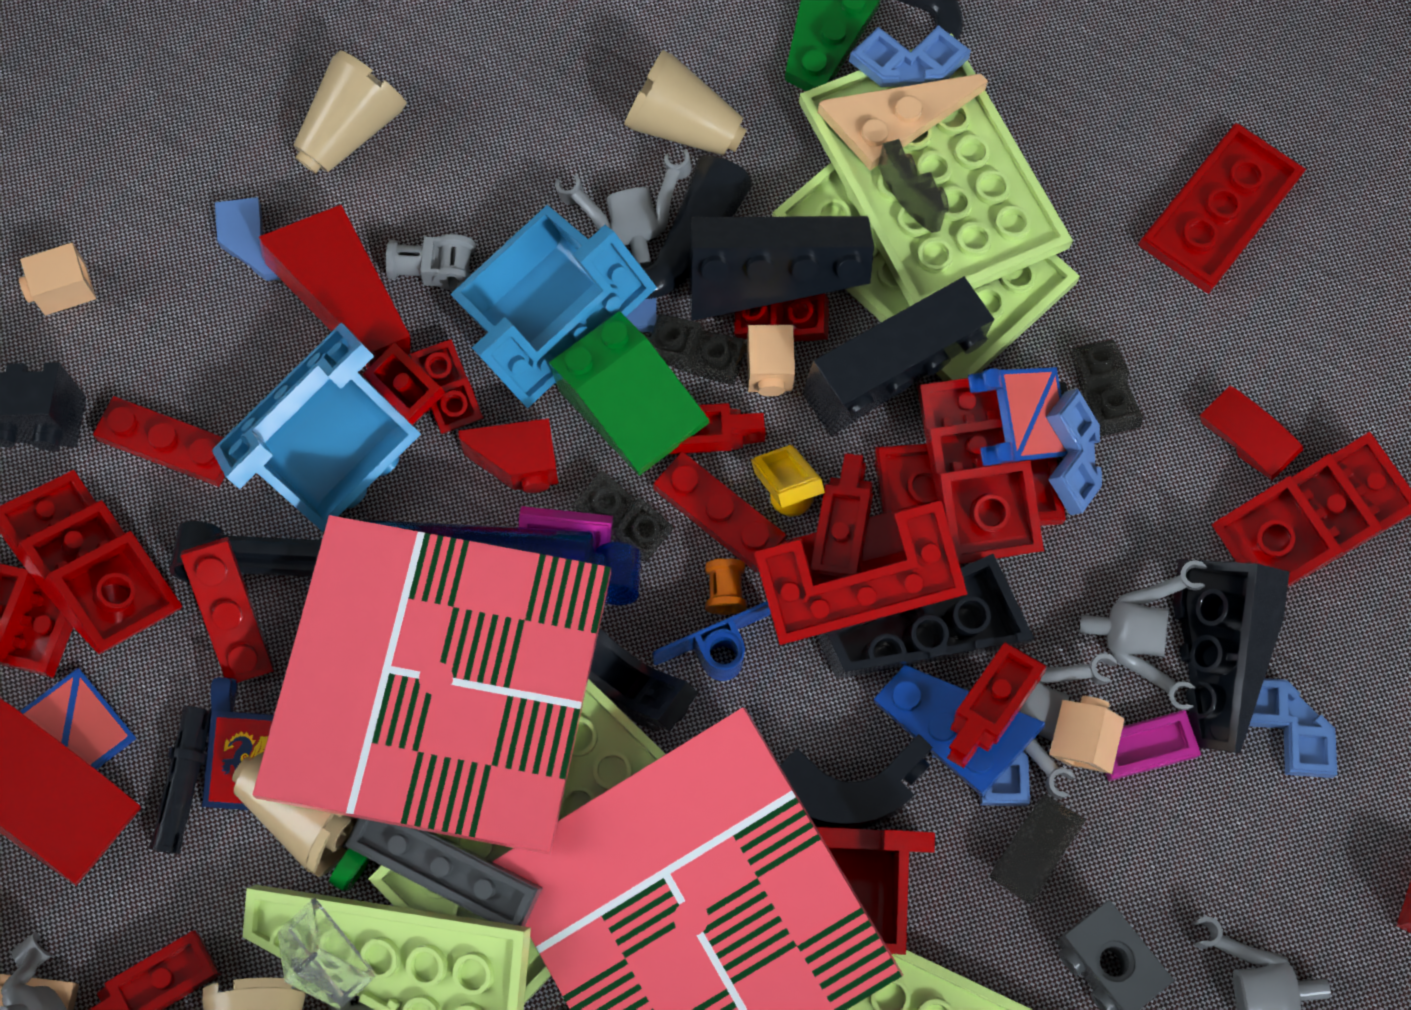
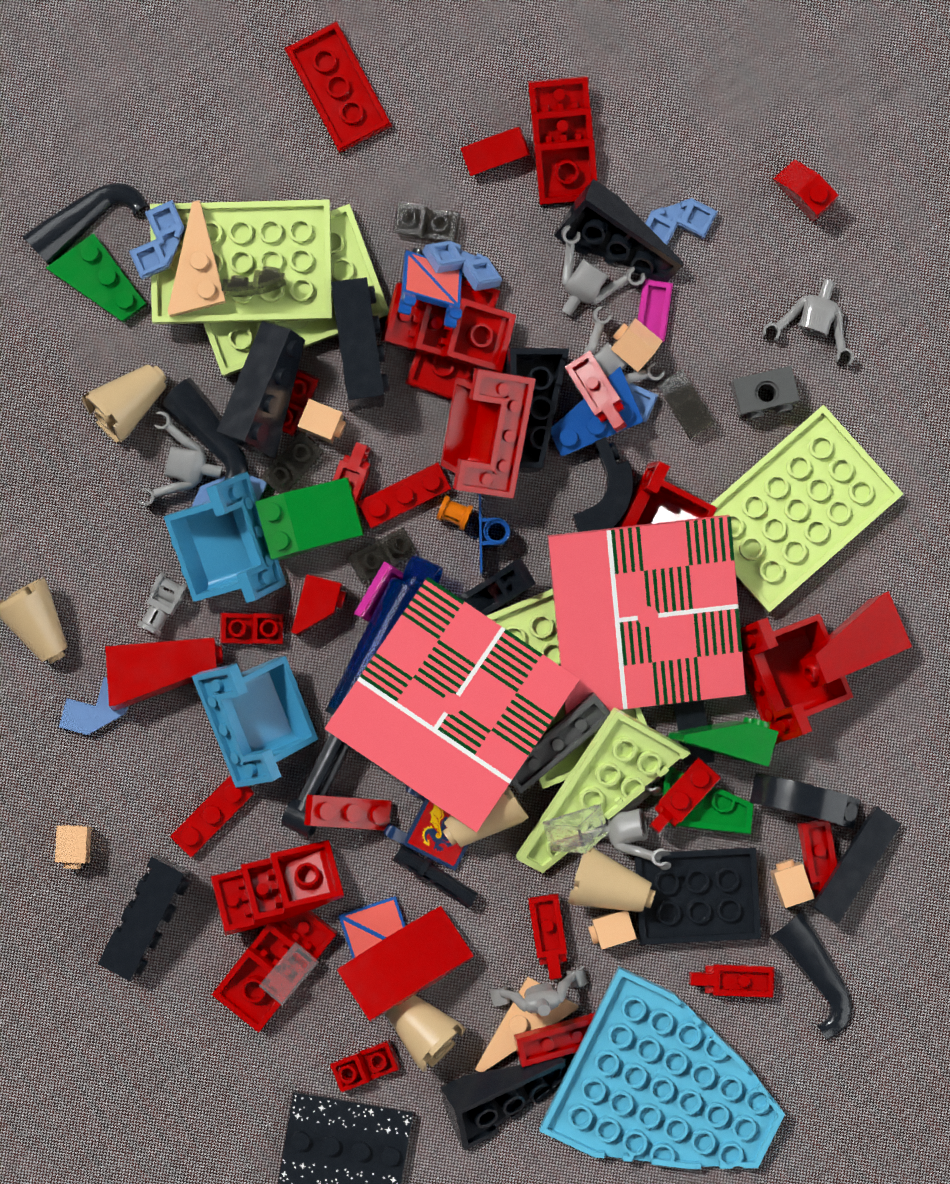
camera: 60 degrees left, 15 degrees up
(349, 870) = (531, 799): green tile -> none
(404, 384) = (256, 651): red slope -> none
(788, 480) = (404, 446): yellow tile -> none
(843, 522) = (451, 426): red hinge -> none

